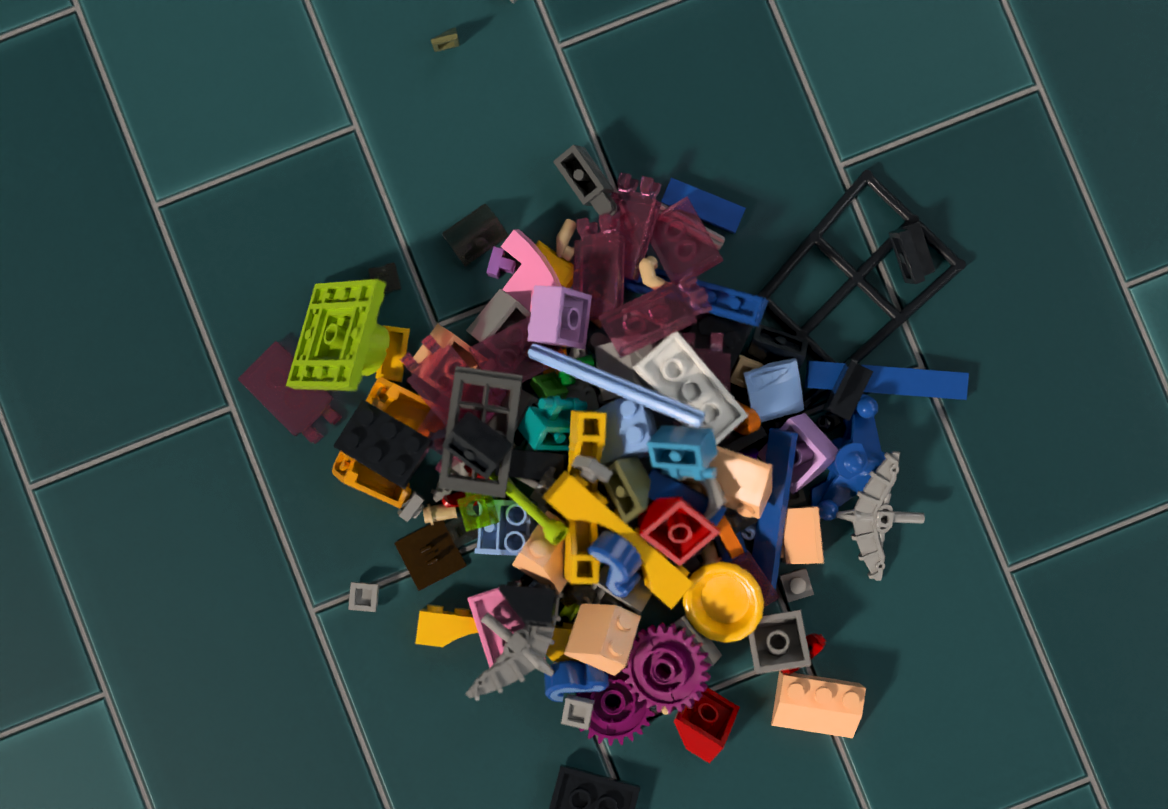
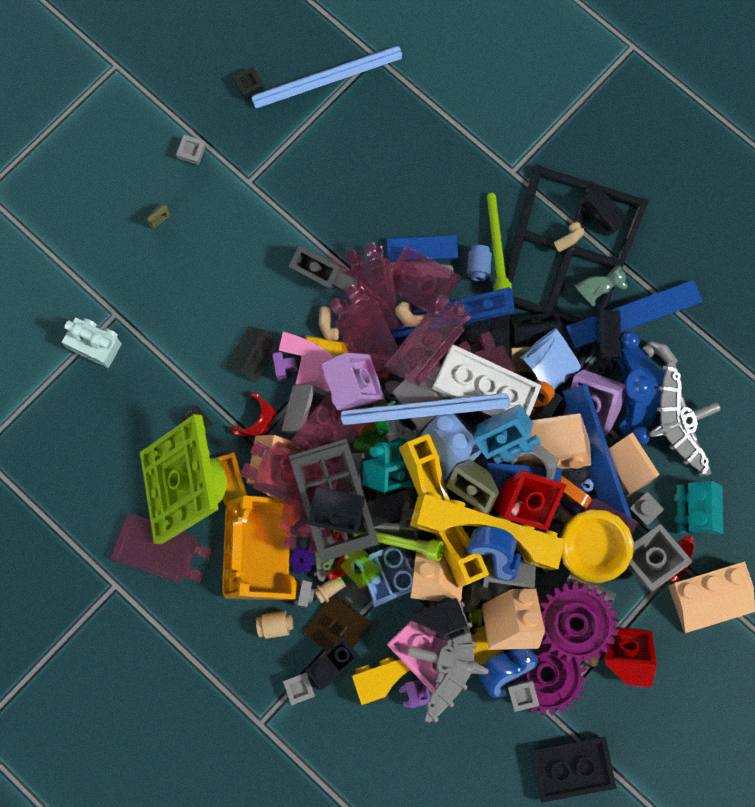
camera: 30 degrees left, 10 degrees down
(315, 144) = (91, 341): none -> light aqua brick
(368, 522) = (274, 624): none -> tan brick
(383, 444) = (258, 549): black plate -> none
(405, 590) = (332, 664): none -> black slope
(424, 477) = (297, 560): none -> dark purple plant
(455, 310) = (263, 422): none -> red helmet
(475, 658) = (417, 694): none -> medium lavender tile
(591, 469) = (439, 483): light grey plate -> none
(754, 249) = (479, 262): none -> medium blue brick
(765, 285) = (501, 281): none -> lime piece
(854, 614) = (704, 508): none -> teal brick
(862, 269) = (570, 239): none -> tan arm
(863, 332) = (595, 286): none -> sand green animal
(897, 432) = (659, 349): none -> light grey arm

